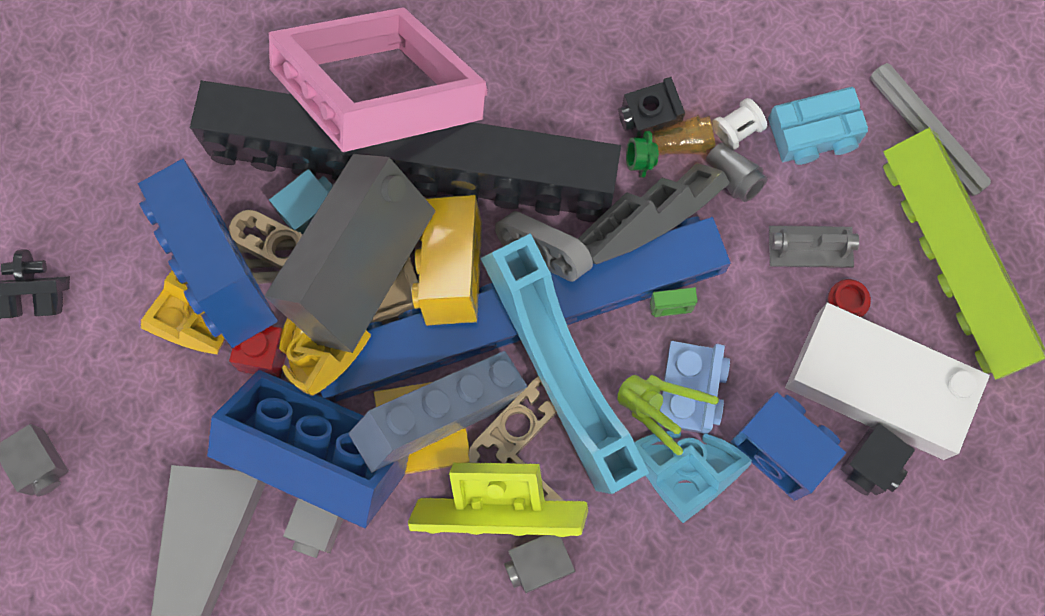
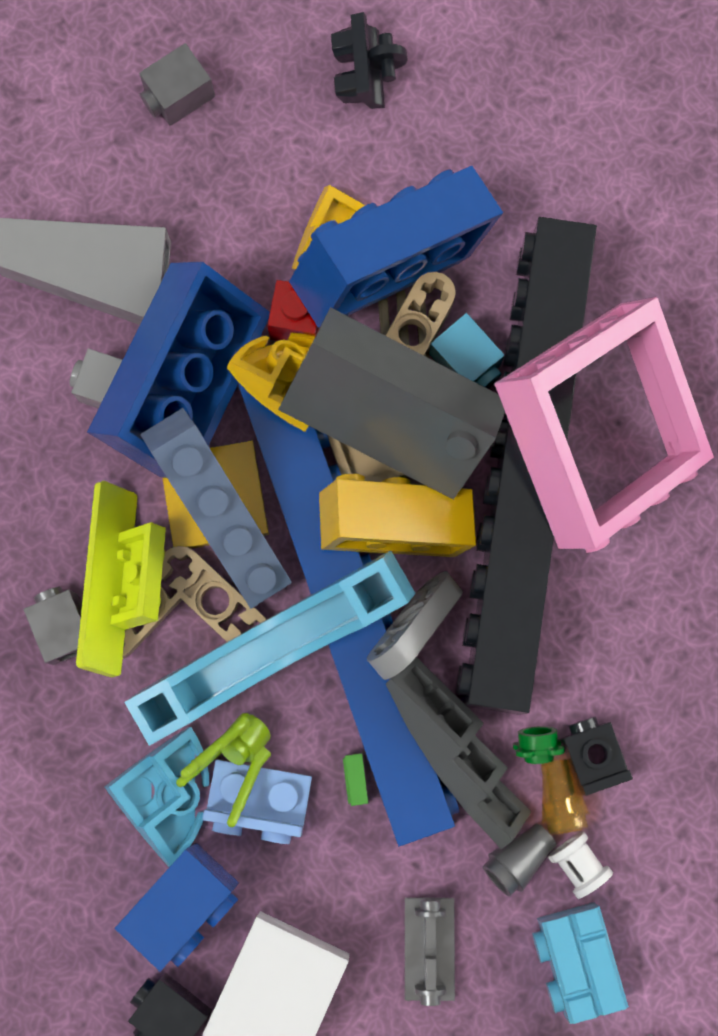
camera: 90 degrees right, 5 degrees up
(850, 296) = (363, 992): red plate -> none

